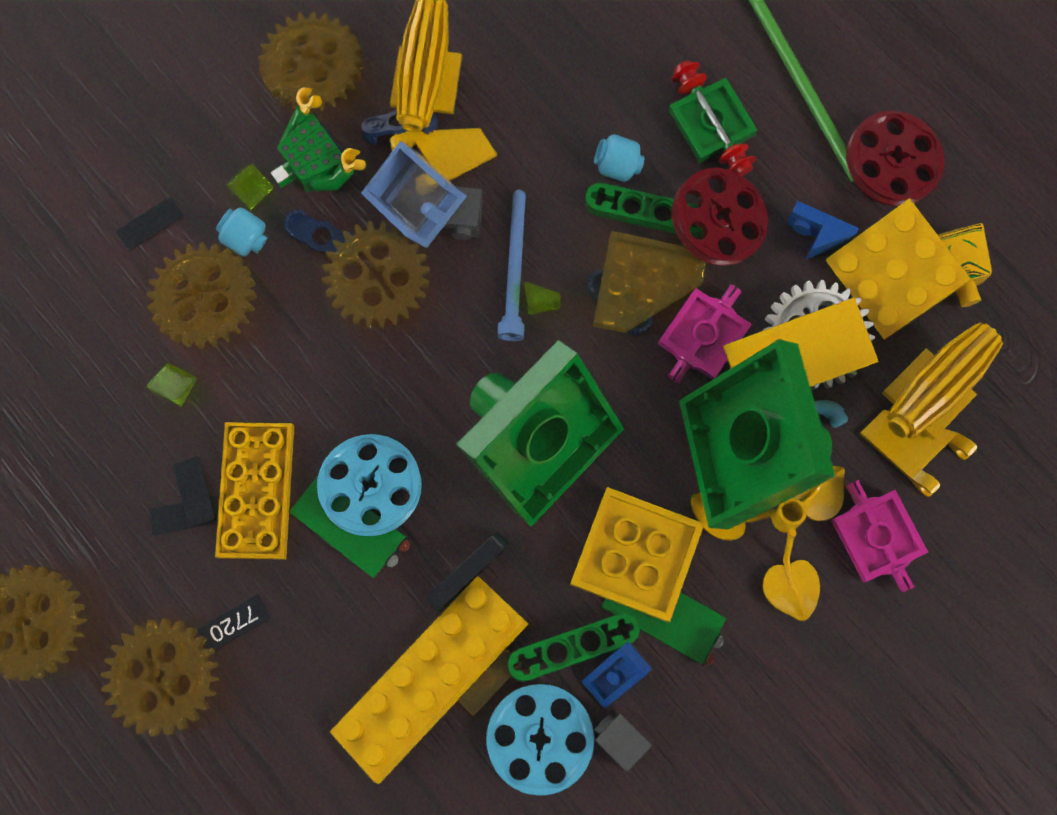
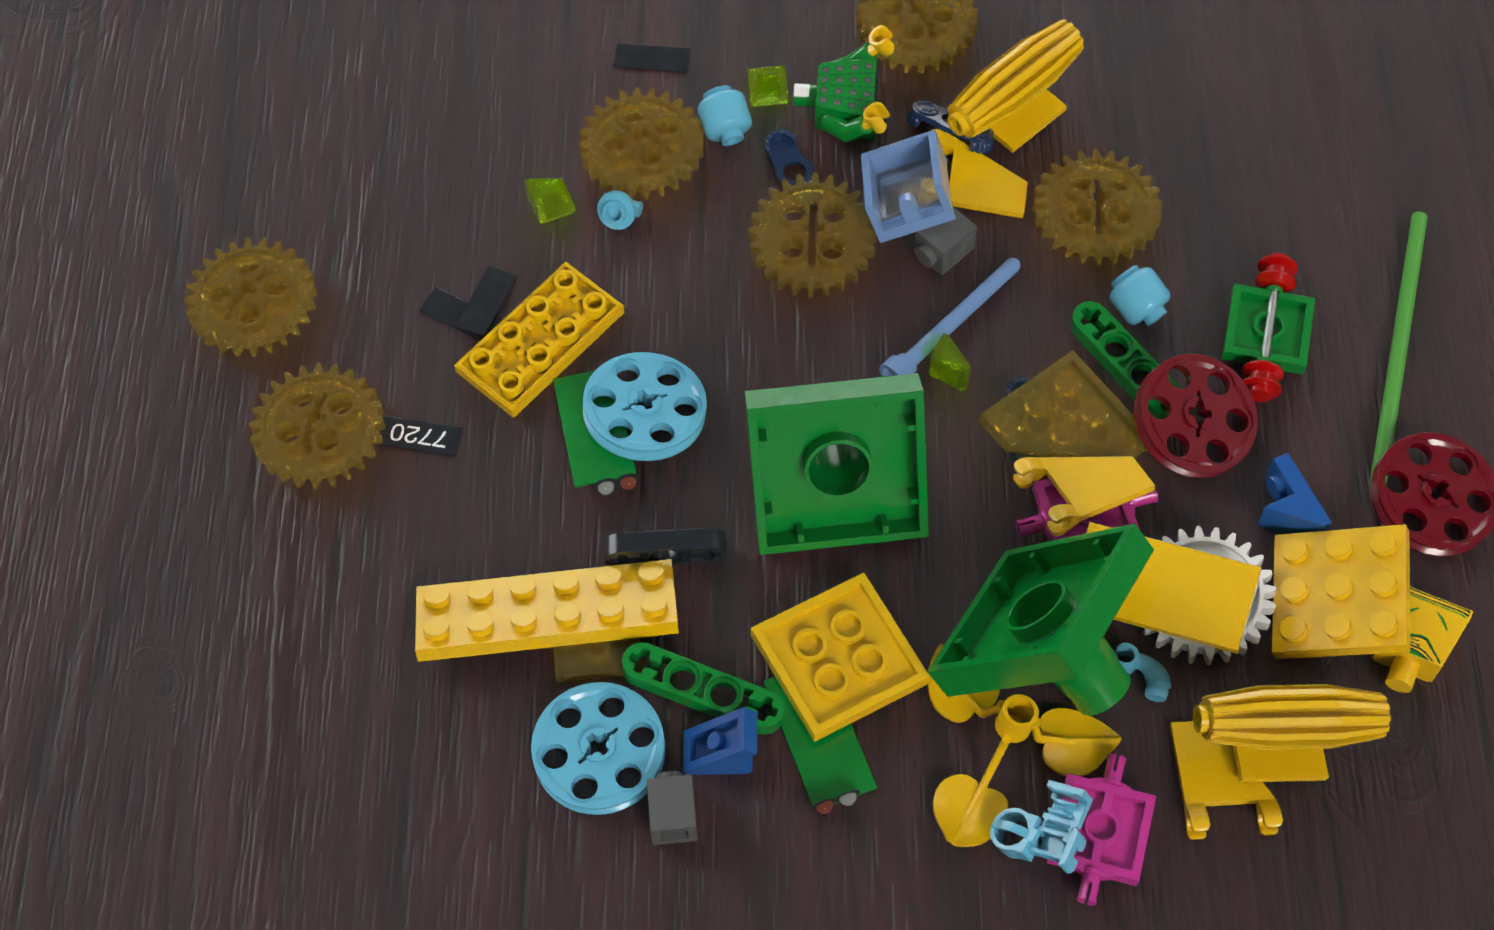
camera: 40 degrees right, 15 degrees down
(228, 356) = (618, 209): none -> medium azure plate
(563, 98) = (1134, 207): none -> clear yellow gear
(694, 316) = (1086, 485): none -> yellow flag
(860, 561) = (1057, 831): none -> medium azure piece

